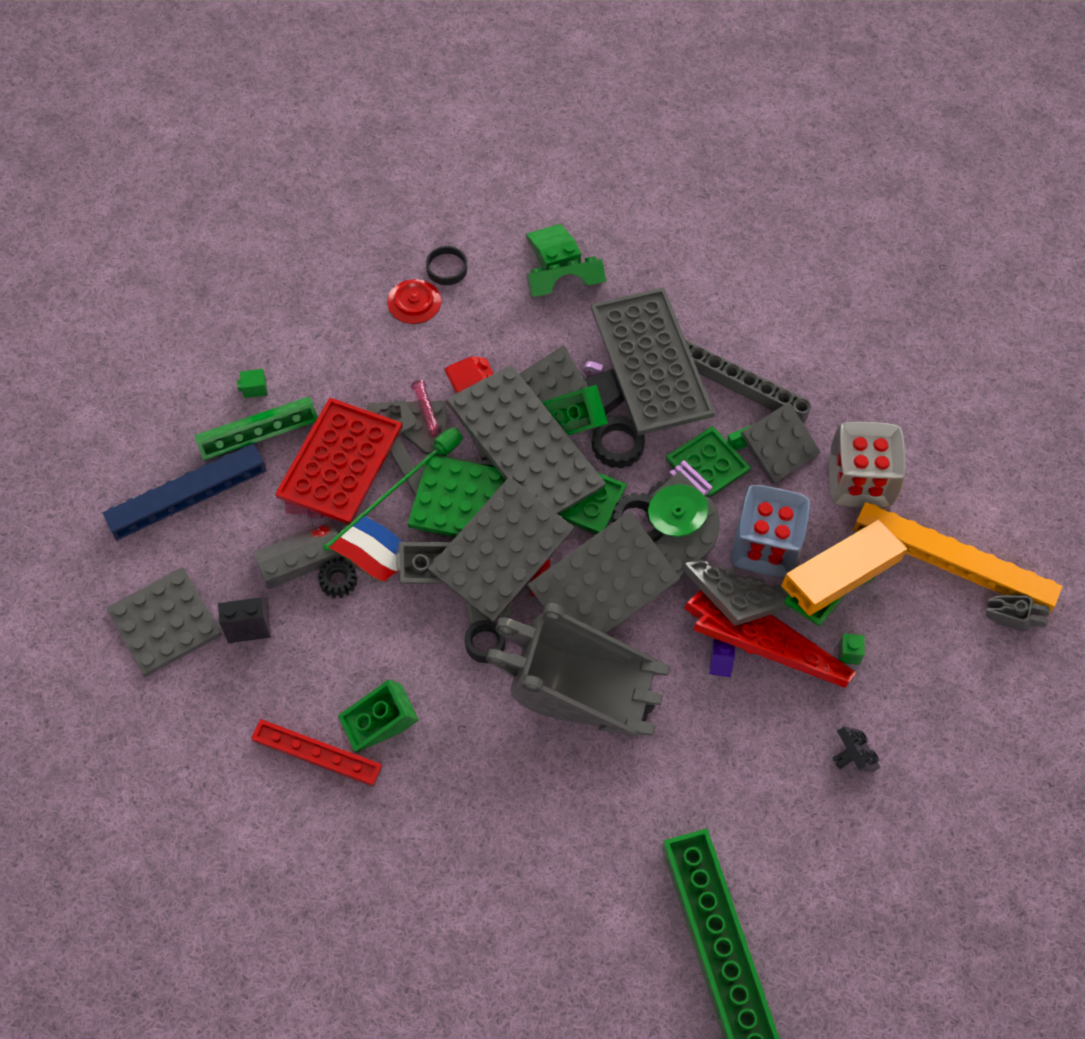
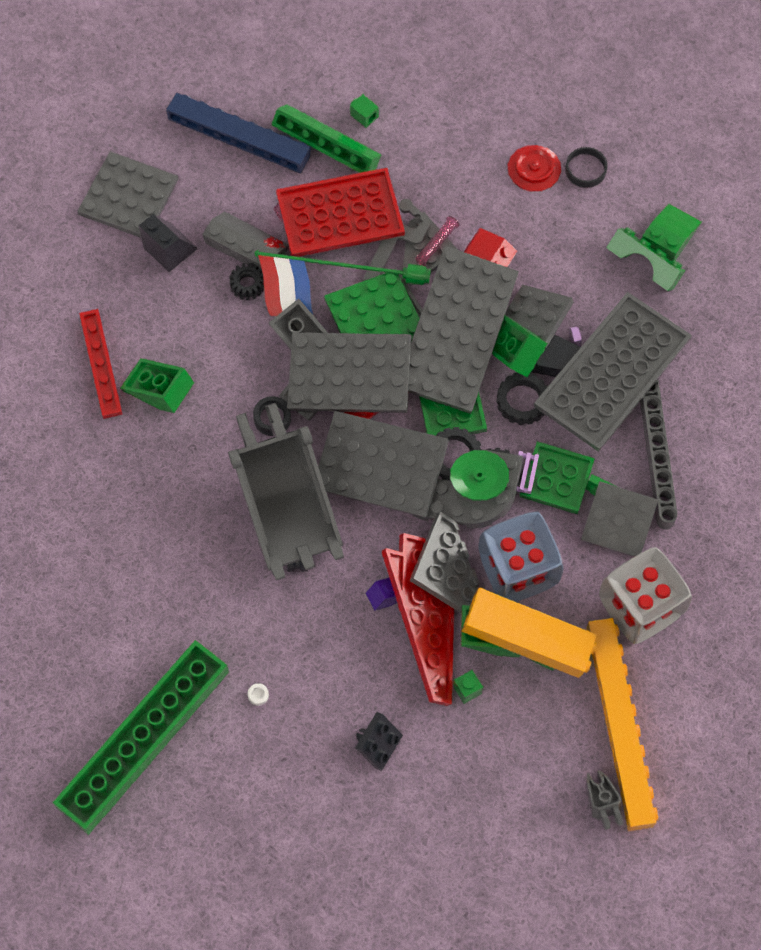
camera: 55 degrees right, 5 degrees up
(742, 824) = (258, 694): none -> white tile

